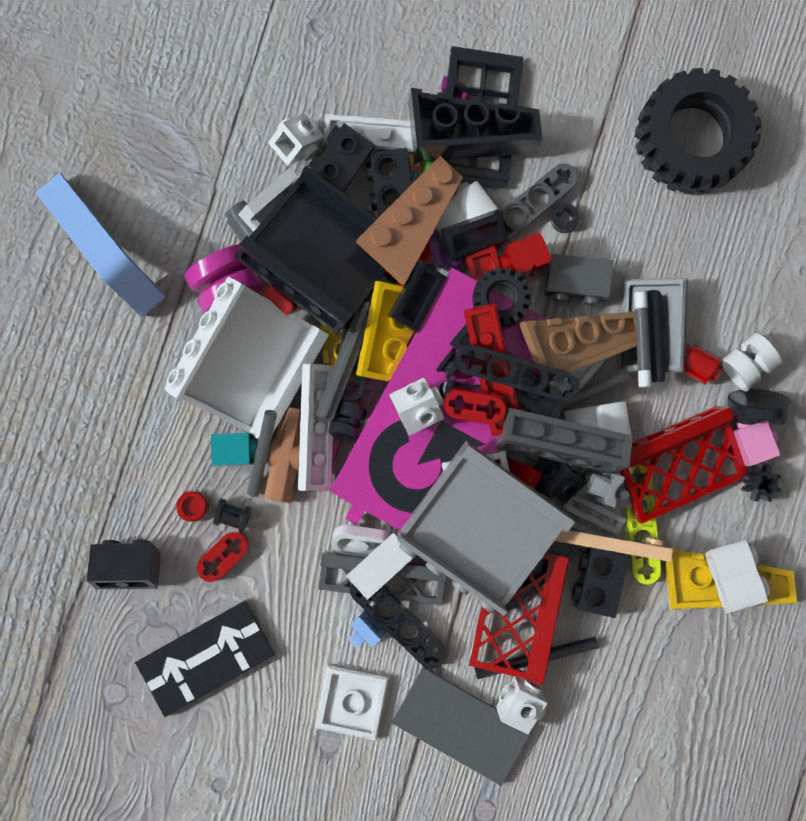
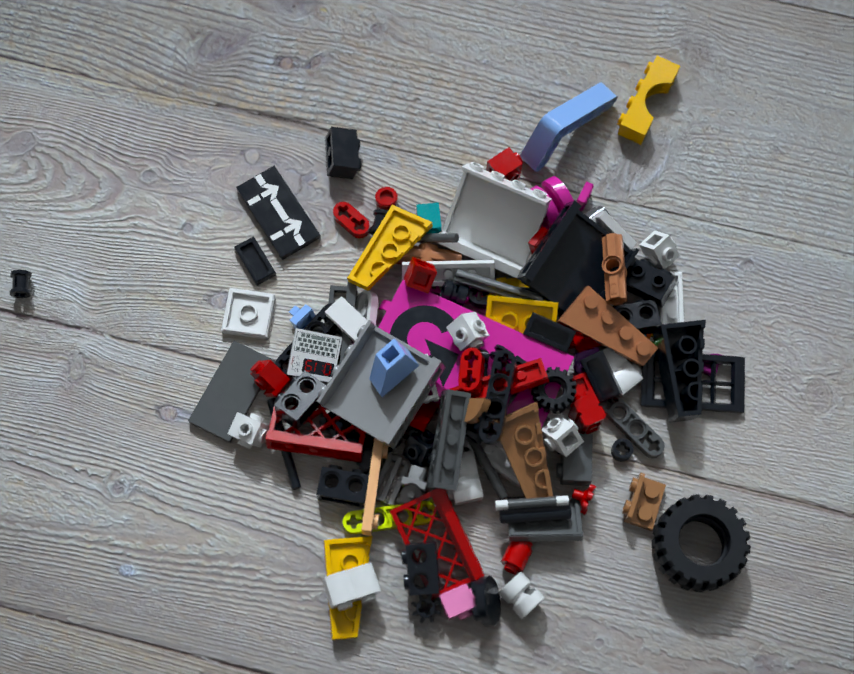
camera: 85 degrees right, 15 degrees down
(97, 148) = (658, 79): none -> yellow arch
(167, 338) = (507, 163): none -> red brick
(209, 233) = (585, 195): none -> dark pink tile
(271, 506) = (390, 242): none -> yellow wing
(275, 692) = (255, 261): none -> black tile
(314, 200) = (614, 257): none -> nougat piece
(327, 466) = (420, 275): none -> red brick
(424, 615) = (314, 353): none -> tile
(452, 677) = (269, 377): none -> red brick
(467, 511) = (391, 366): none -> light blue slope
(494, 629) = (305, 402): none -> black brick
(533, 402) = (475, 409): none -> medium nougat tile
(560, 292) = (561, 435): none -> white brick
(629, 271) = (584, 497): none -> red plant
(634, 198) = (644, 502): none -> medium nougat bracket
(717, 482) = (428, 568): none -> black brick

